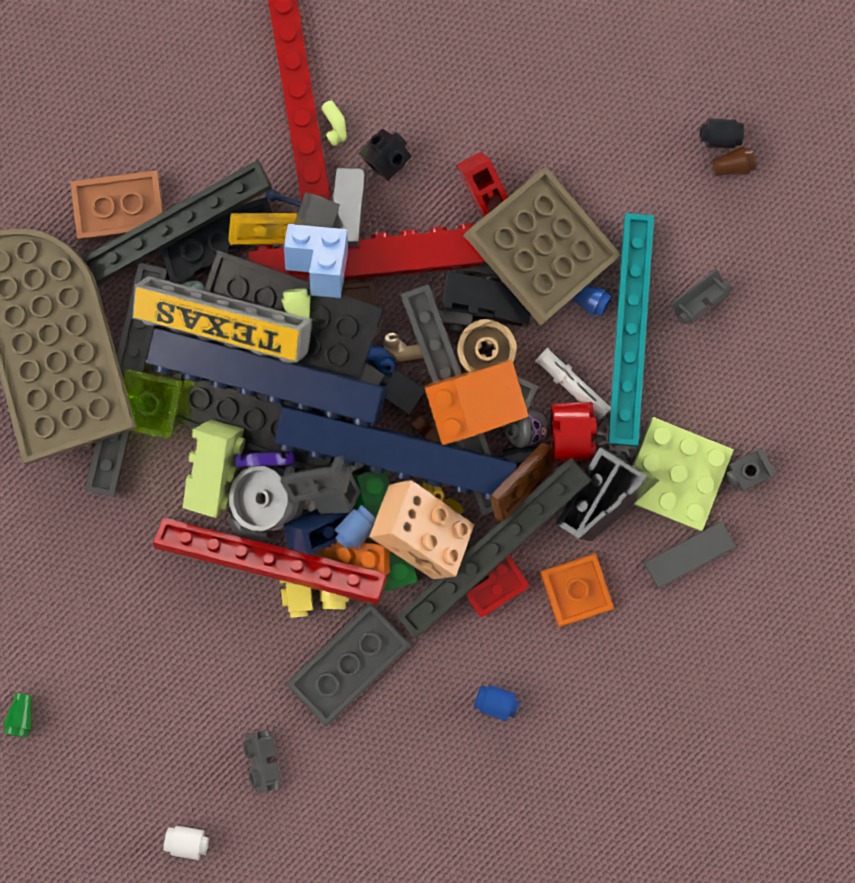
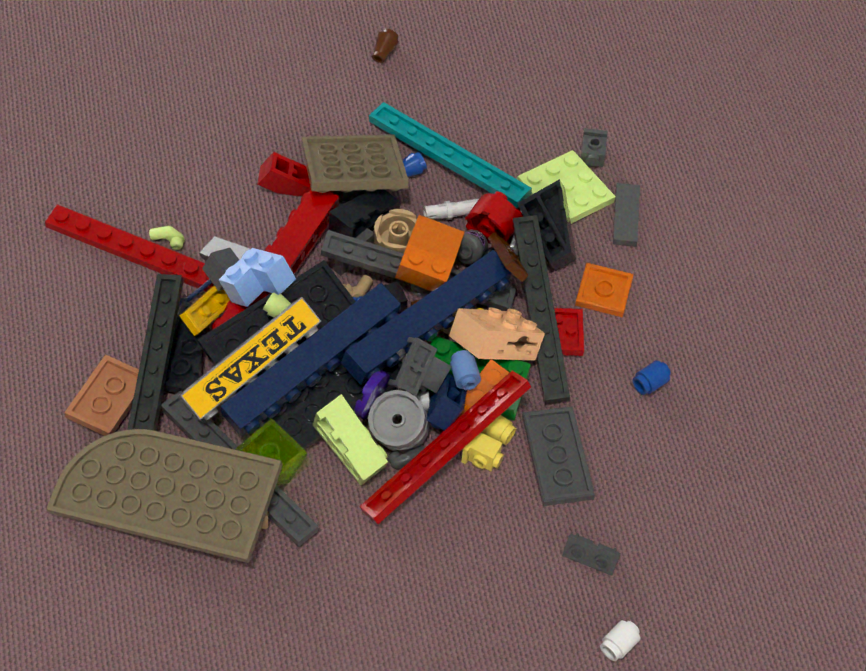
camera: 55 degrees left, 30 degrees down
(385, 154) = (215, 216): black brick -> none
(694, 301) = (458, 110): dark grey hinge -> none
(722, 133) = (360, 41): black brick -> none

